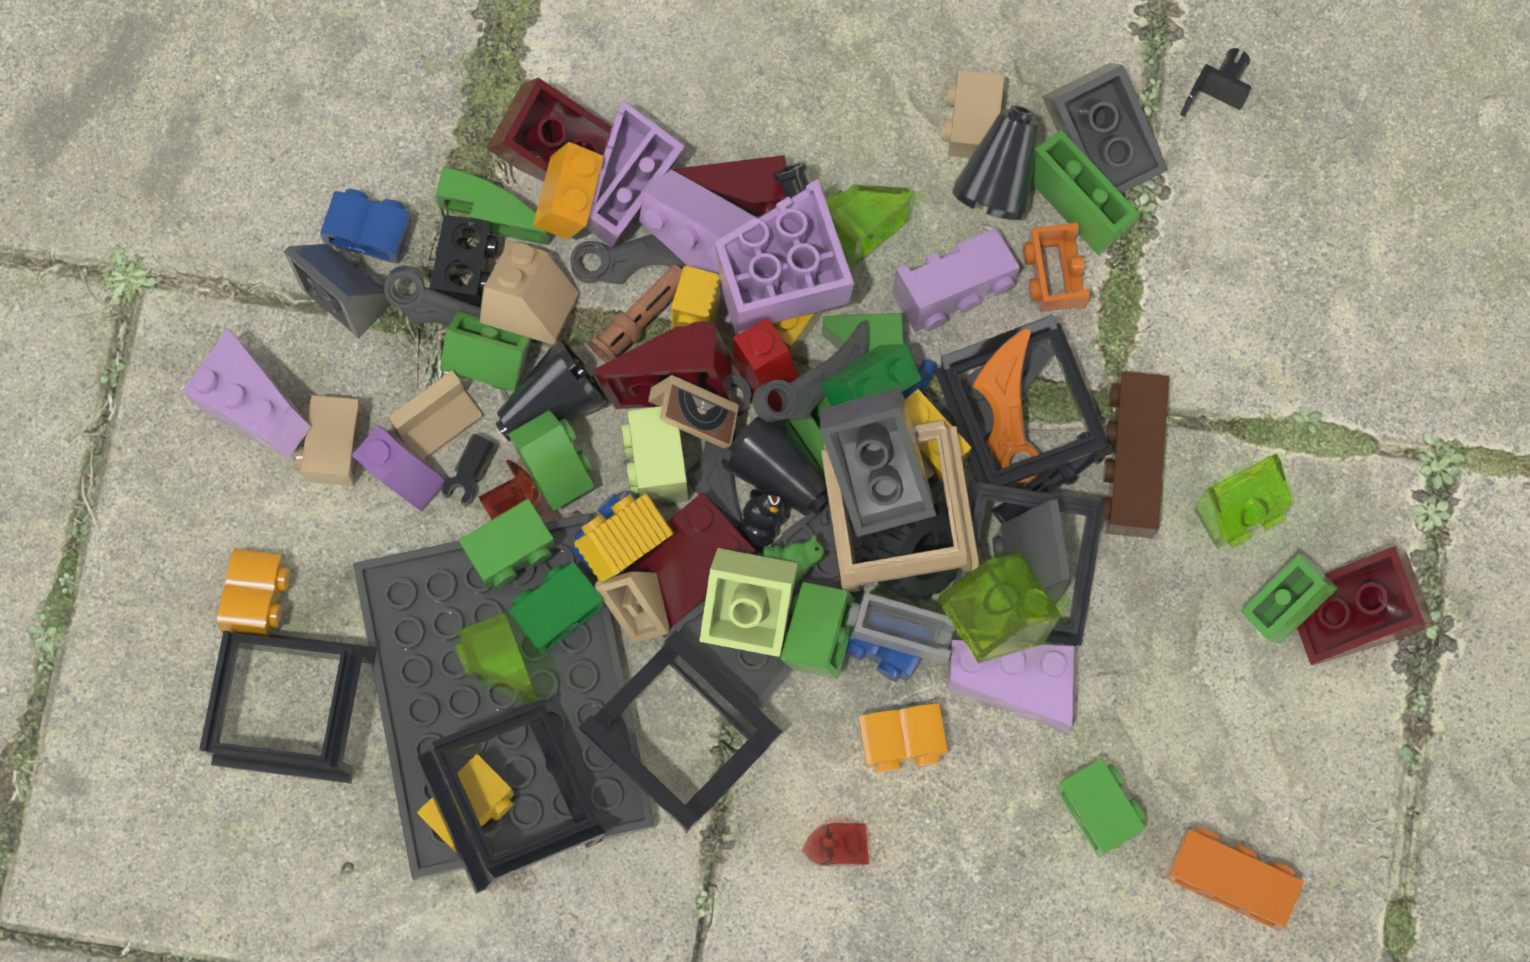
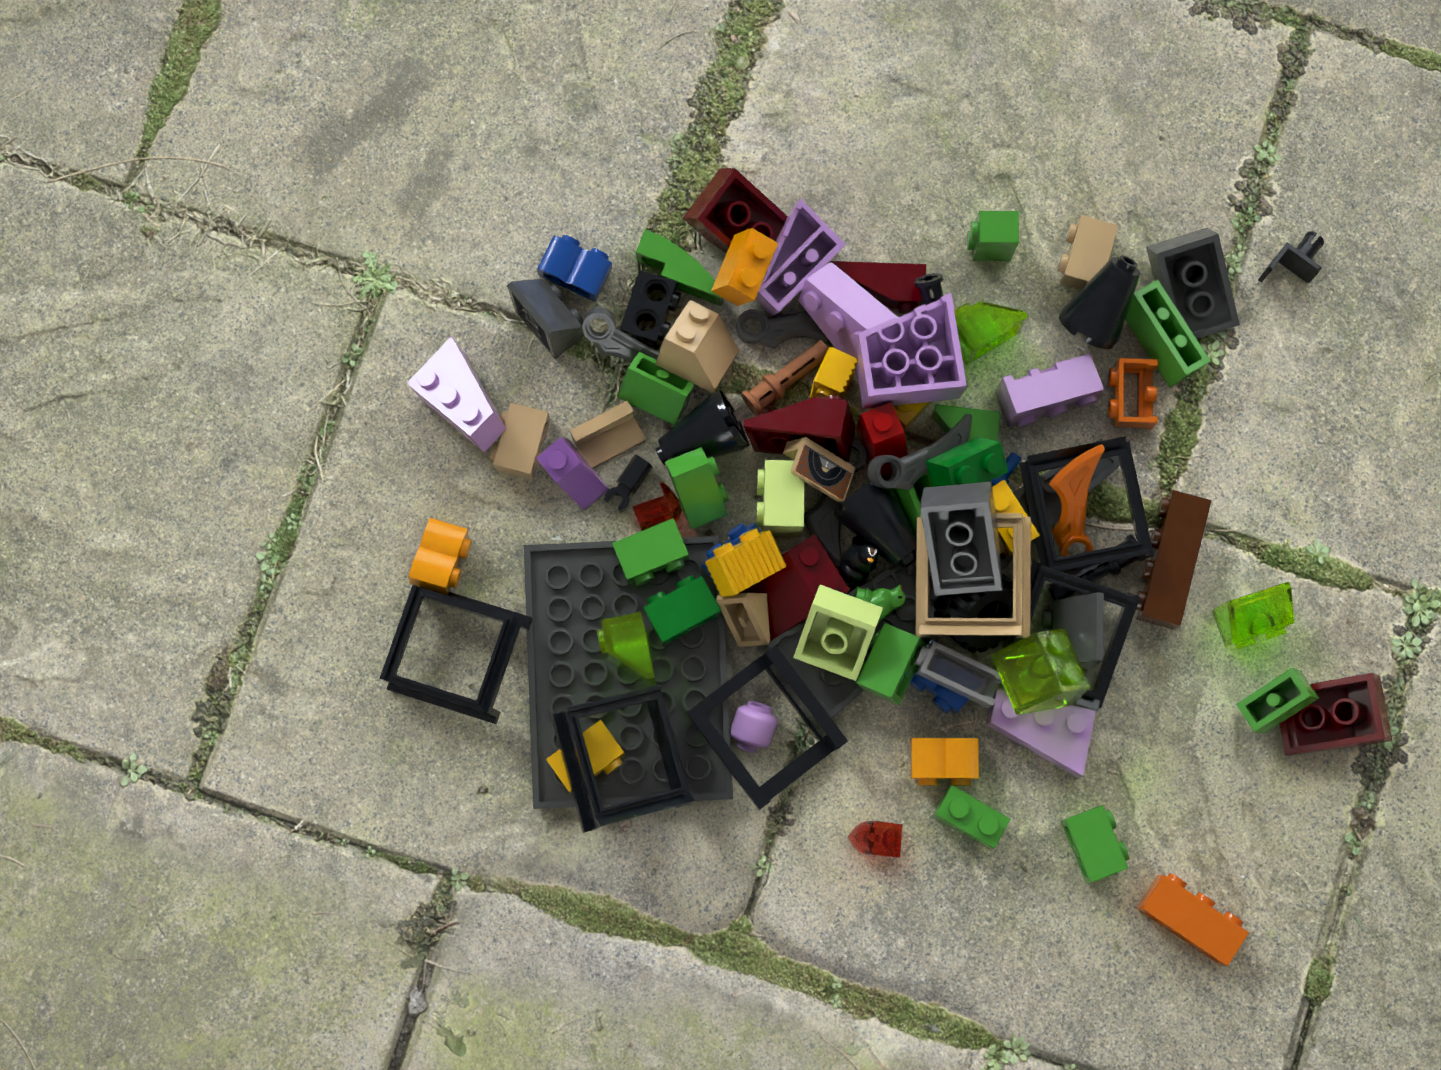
camera: 10 degrees right, 5 degrees up
(666, 734) = (753, 726): none -> lavender head
(859, 109) = (994, 235): none -> bright green brick
(946, 800) = (971, 817): none -> bright green brick

